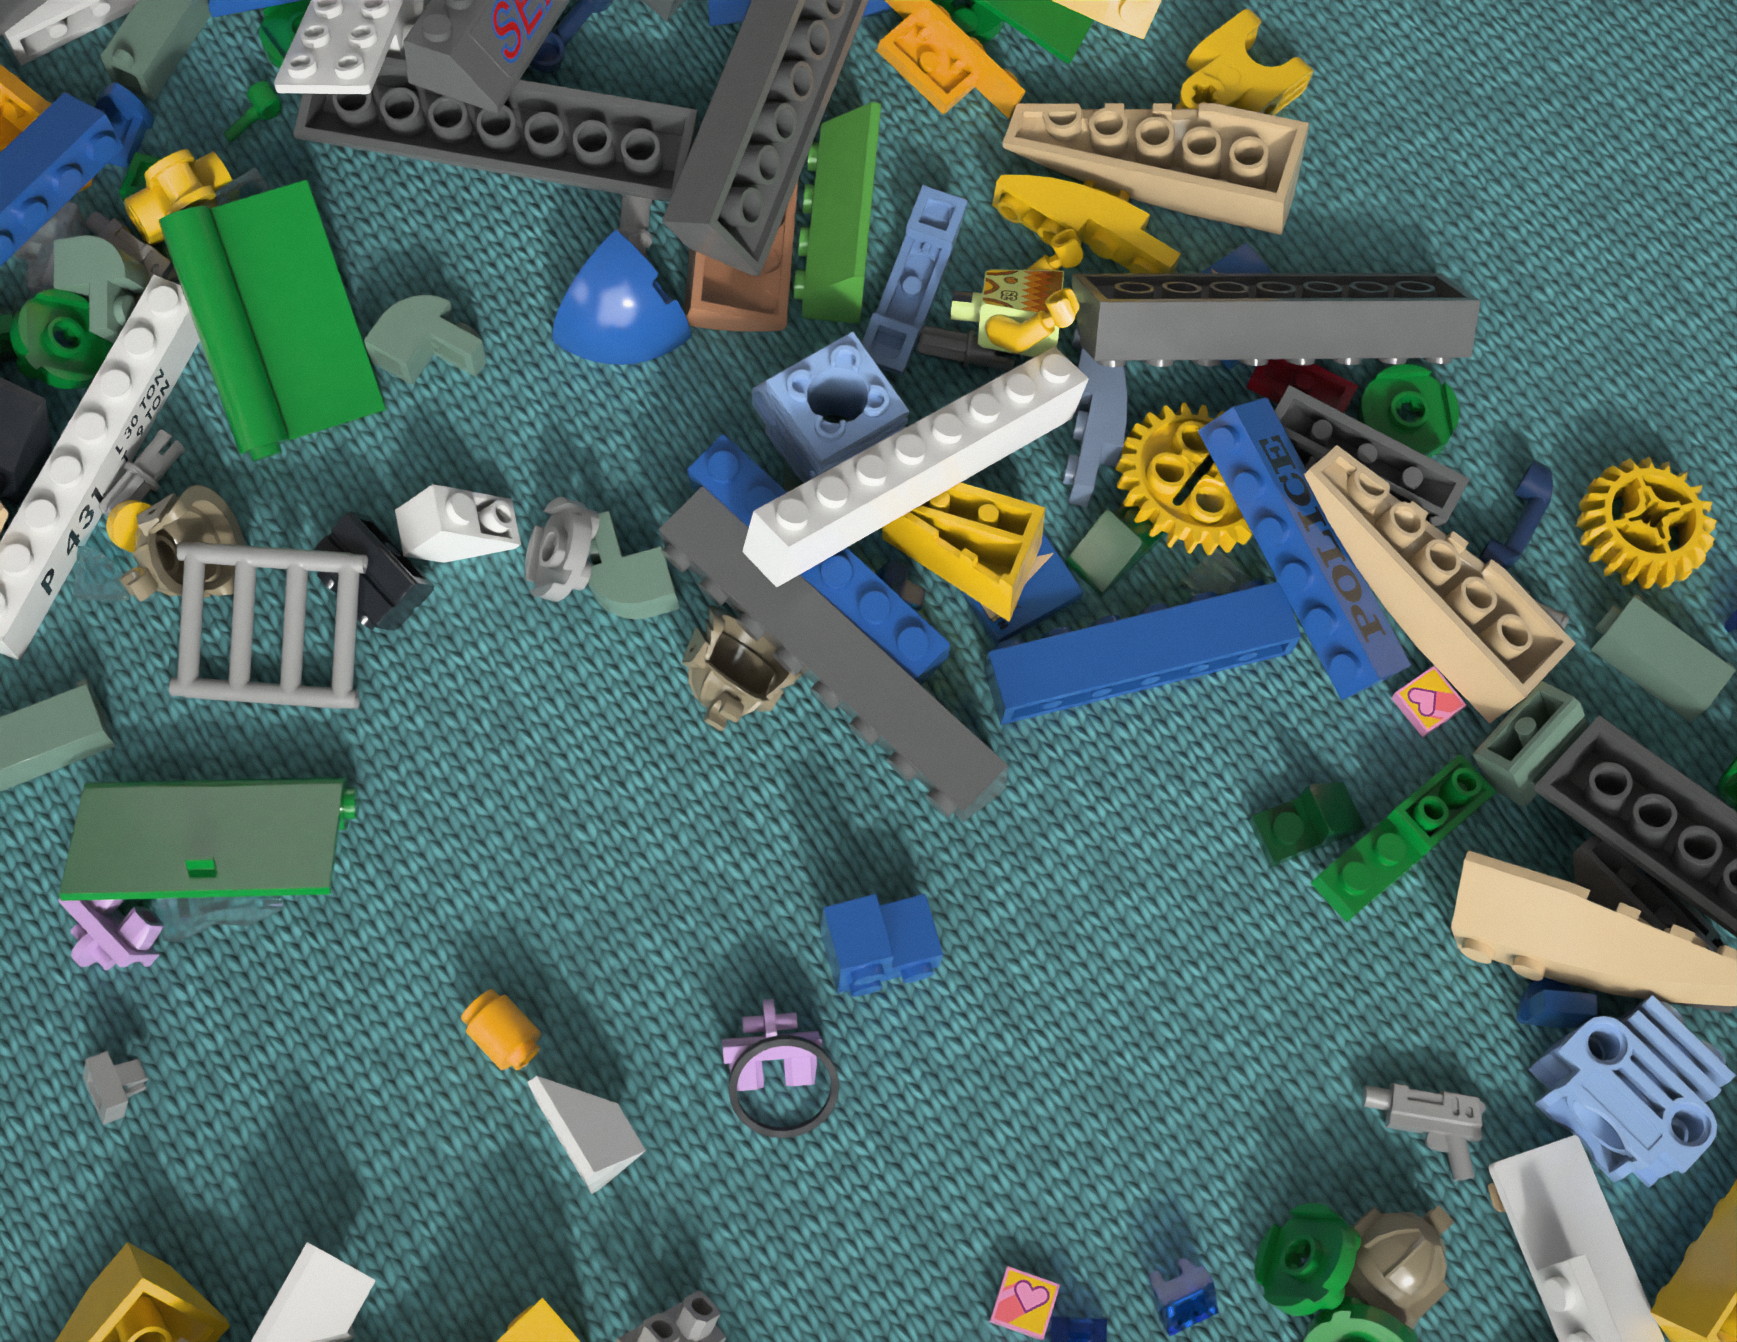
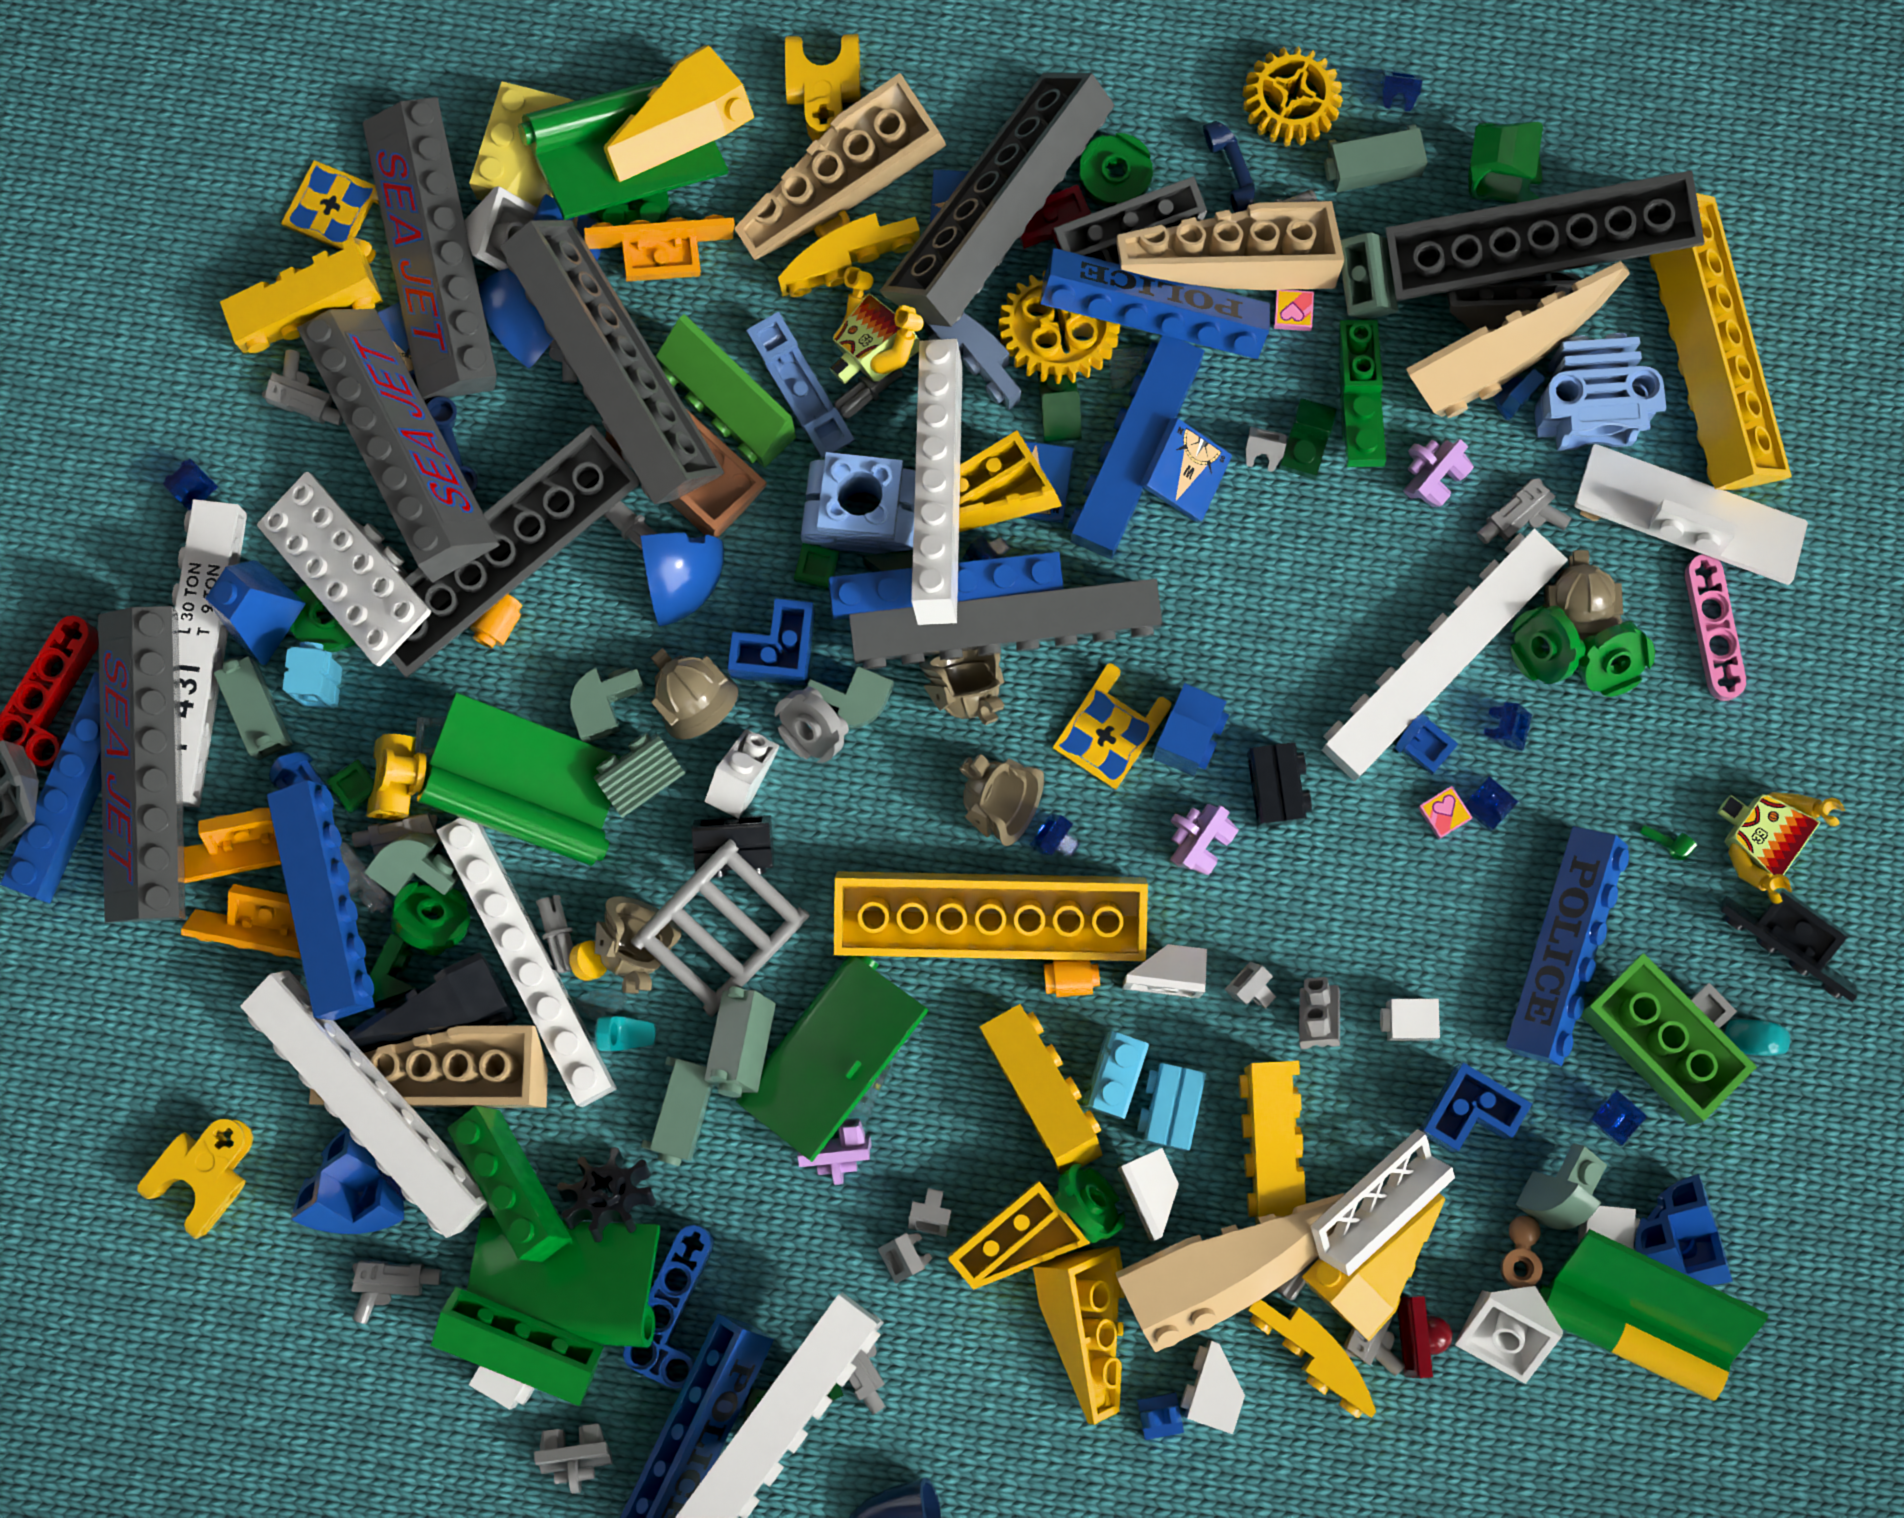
camera: 40 degrees left, 10 degrees up
(37, 1092) = (902, 1257): none -> light grey tile
(77, 614) = (623, 1033): none -> teal hair
(151, 1199) = (1017, 1238): none -> yellow wedge
(153, 735) = (739, 1042): none -> sand green brick
(226, 53) = (312, 676): none -> medium azure brick
(230, 1268) = (1089, 1202): none -> green plate
(264, 106) = (354, 678): green hand -> none
(343, 1098) = (1042, 1089): none -> yellow wedge
(372, 425) = (638, 773): none -> sand green brick
(423, 1164) = (1115, 1075): none -> medium azure brick
(428, 184) = (497, 623): none -> light orange brick
(438, 1258) = (1172, 1106): none -> medium azure brick
(501, 412) = (691, 694): none -> dark tan helmet
(501, 892) = (990, 916): none -> yellow slope
(616, 467) = (783, 654): none -> blue brick
(641, 803) = (1001, 796): none -> dark tan helmet
(644, 892) = (1054, 837): none -> clear blue tile
(647, 1236) = (1251, 985): none -> light grey tile
(746, 432) = (816, 565): none -> green tile
(791, 1131) = (1201, 839): black piece -> none
(808, 860) = (1108, 734): none -> yellow flag
(898, 1088) = (1278, 785): none -> black brick
(1084, 1216) = (1426, 743): none -> blue tile
(1159, 718) = (1186, 469): none -> tile
(1200, 1154) = (1444, 654): none -> white brick
(1262, 780) = (1265, 442): none -> light grey tile
(1369, 987) = (1431, 465): none -> lavender hips

